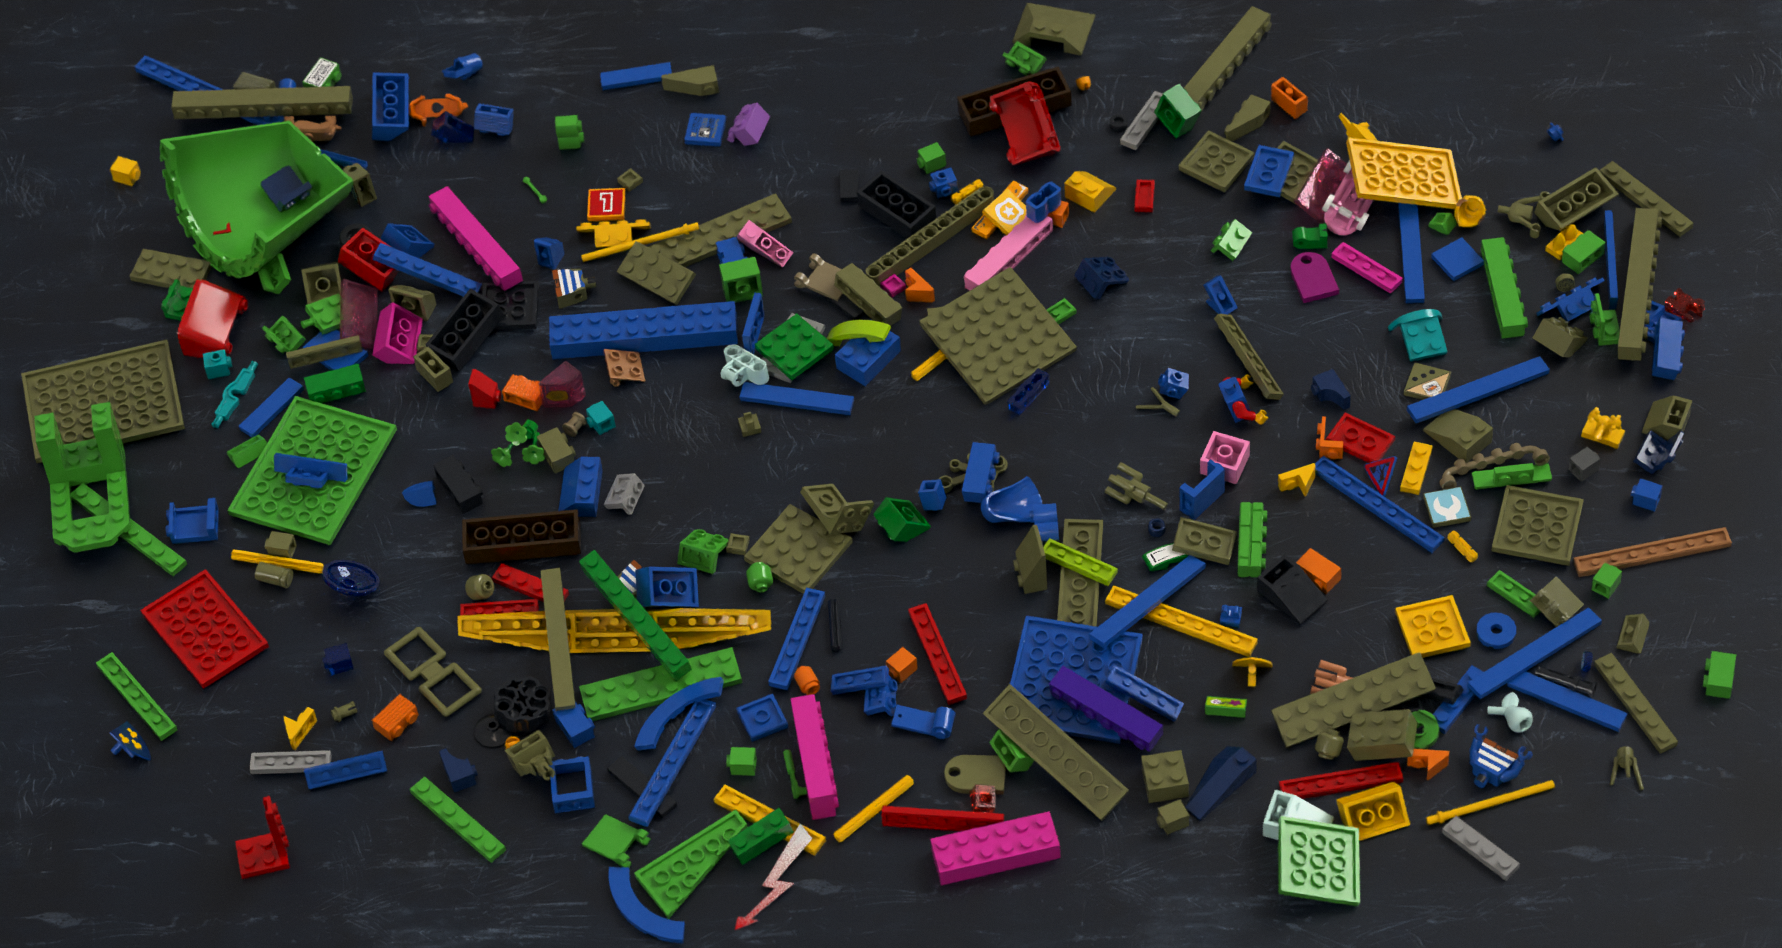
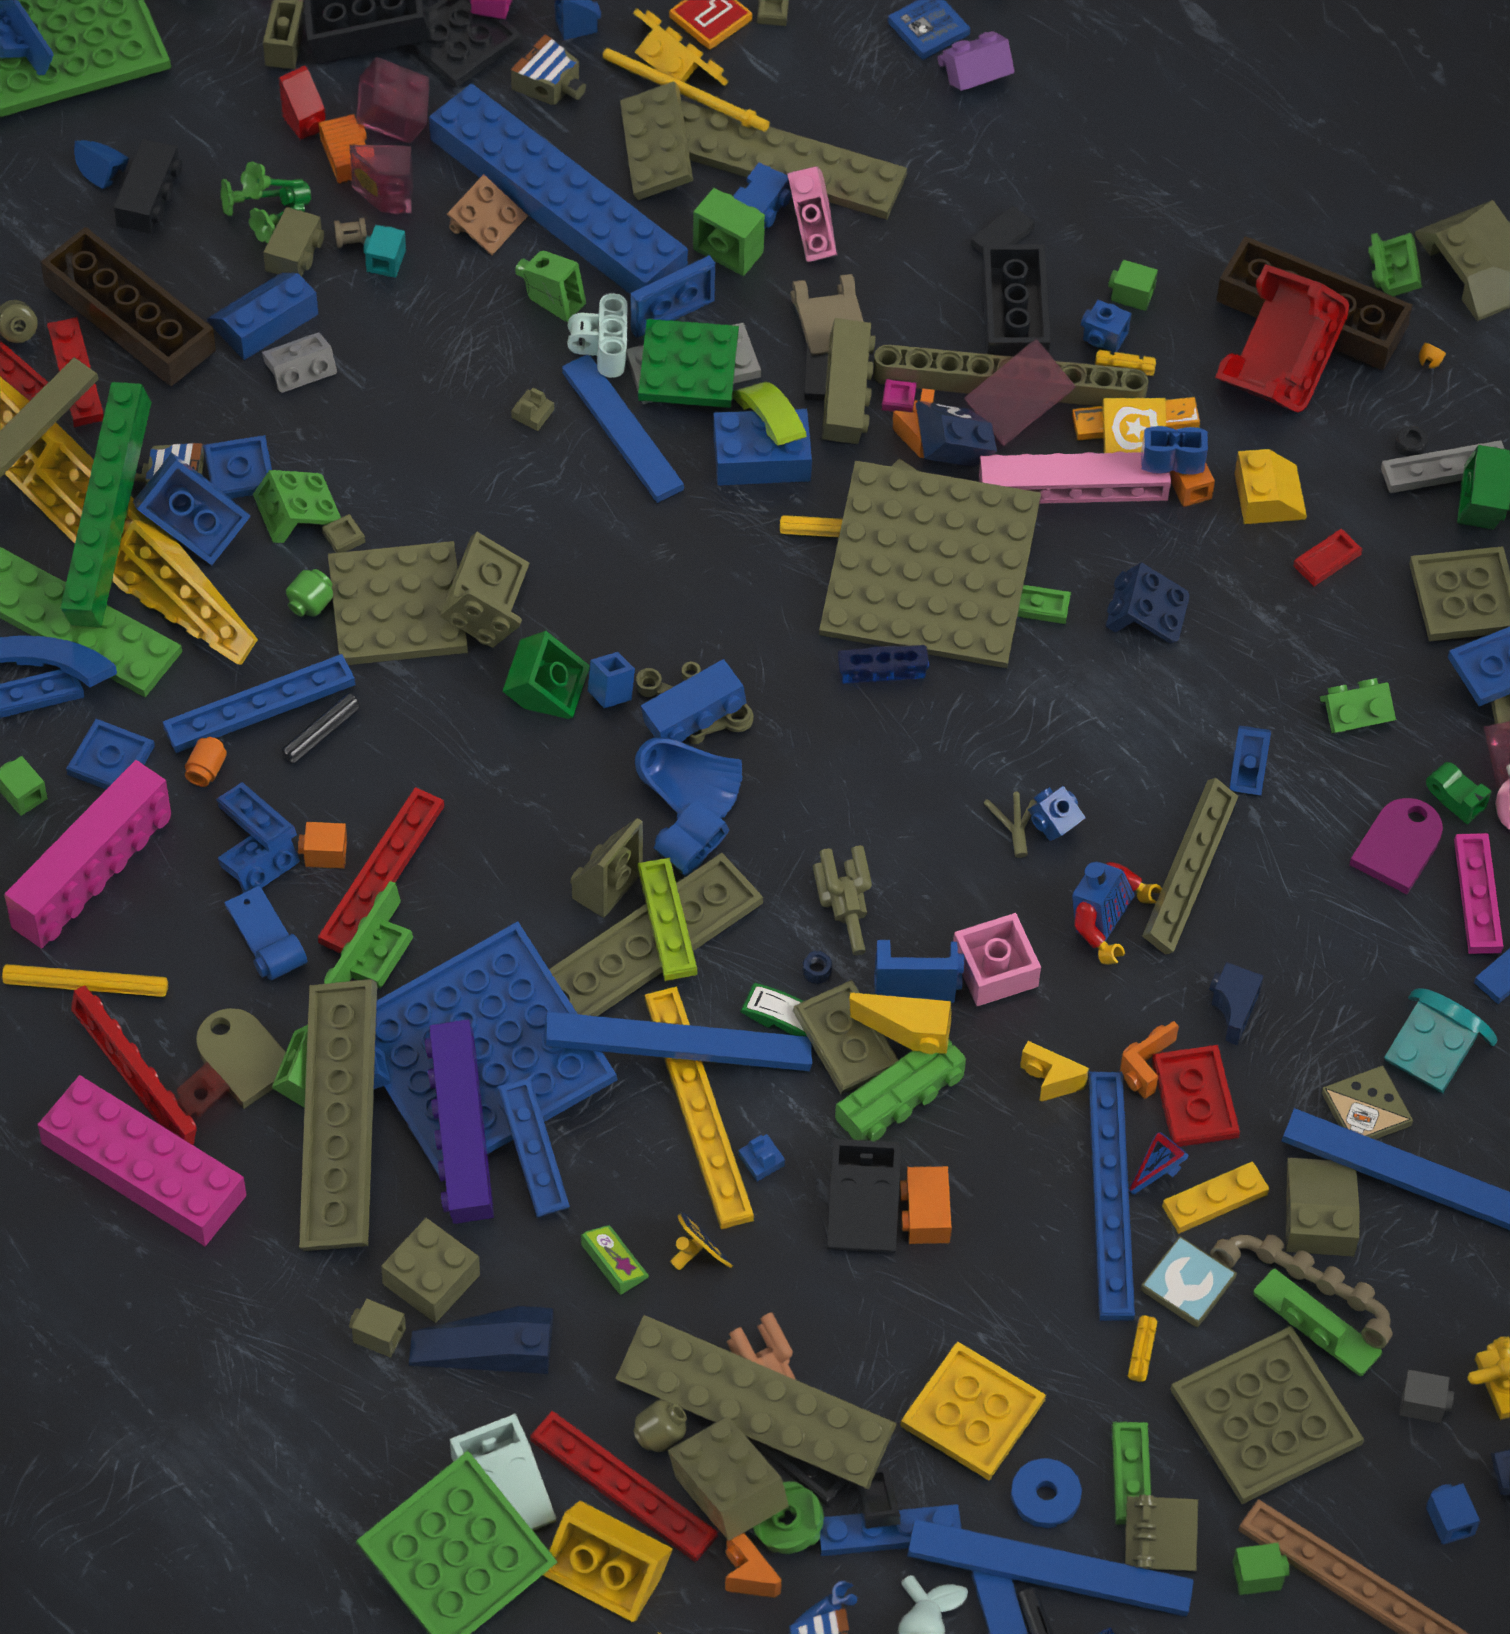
camera: 40 degrees right, 5 degrees up
(523, 353) = (393, 100): none -> clear pink brick
(657, 554) = (238, 465): none -> blue tile
(692, 366) = (553, 283): none -> bright green torso
(942, 276) = (954, 434): none -> dark blue slope
(946, 237) = (1020, 392): none -> clear pink tile
(978, 683) = (375, 945): none -> bright green bracket
(1227, 508) = (909, 1021): none -> yellow slope

